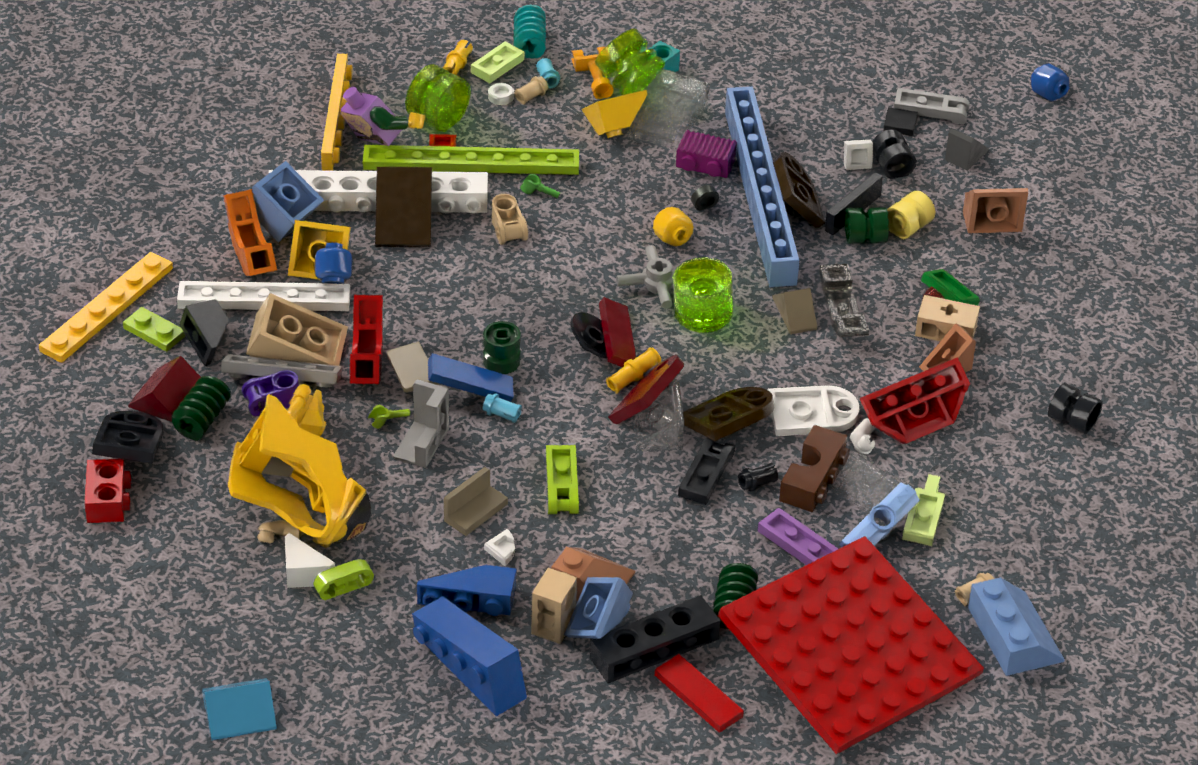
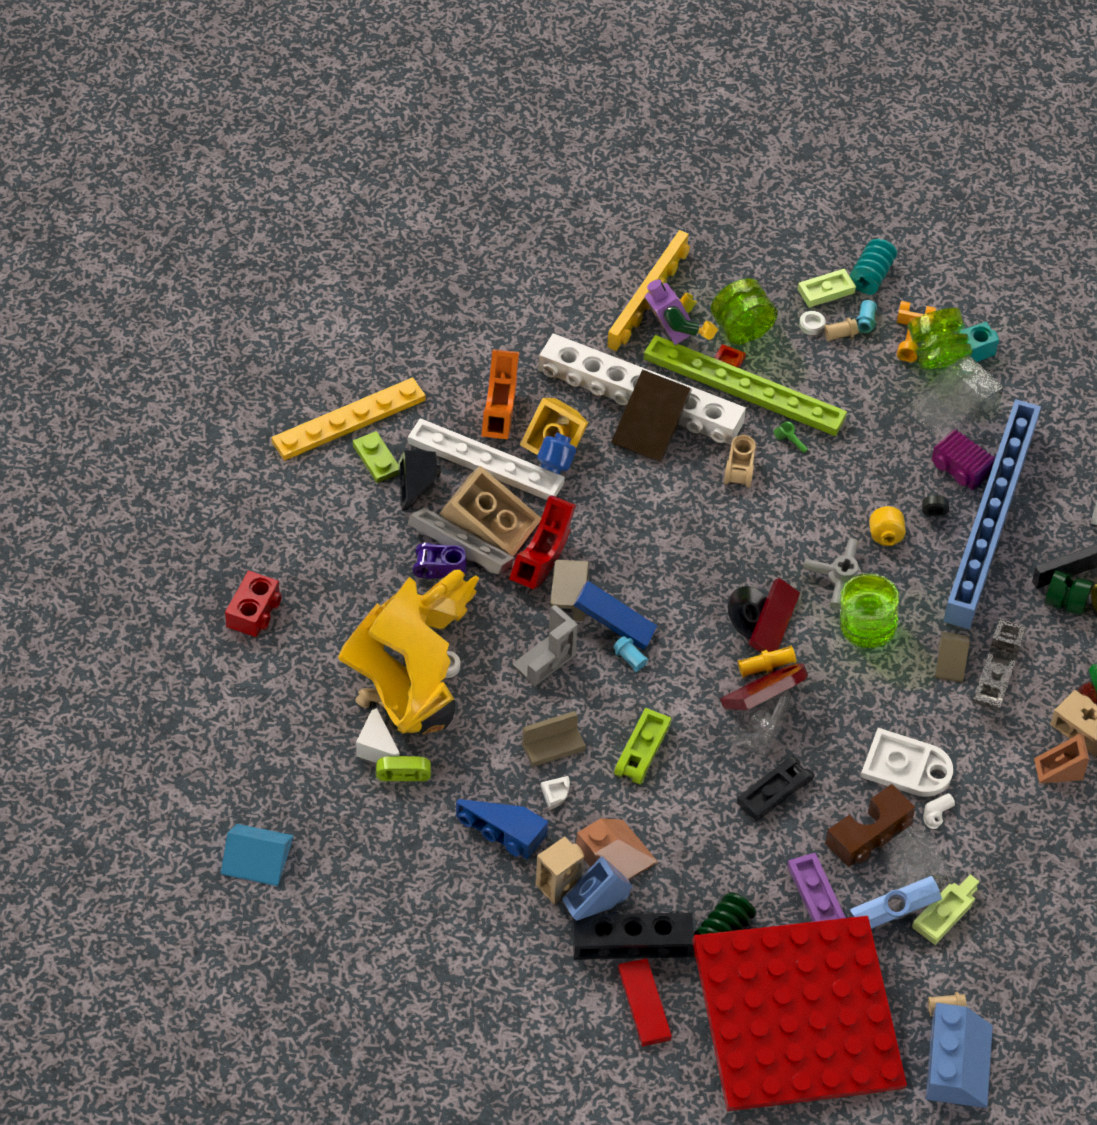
camera: 25 degrees right, 10 degrees up
(129, 436) = (294, 561): black tile -> none
(165, 389) = (357, 527): dark red slope -> none
(200, 407) = (369, 551): dark green piece -> none
(283, 199) = (548, 370): medium blue slope -> none
(381, 415) = (524, 619): lime hand -> none
(458, 57) = (790, 272): yellow pin -> none
(472, 653) = (467, 885): blue wedge -> none
(502, 347) = (660, 594): dark green wheel -> none
(614, 114) = (902, 384): yellow slope -> none
(729, 412) = (828, 738): dark brown tile -> none
(759, 476) = (816, 813): black pin -> none
(798, 188) = (1024, 529): dark brown tile -> none
(918, 402) = (1002, 798): red wedge -> none

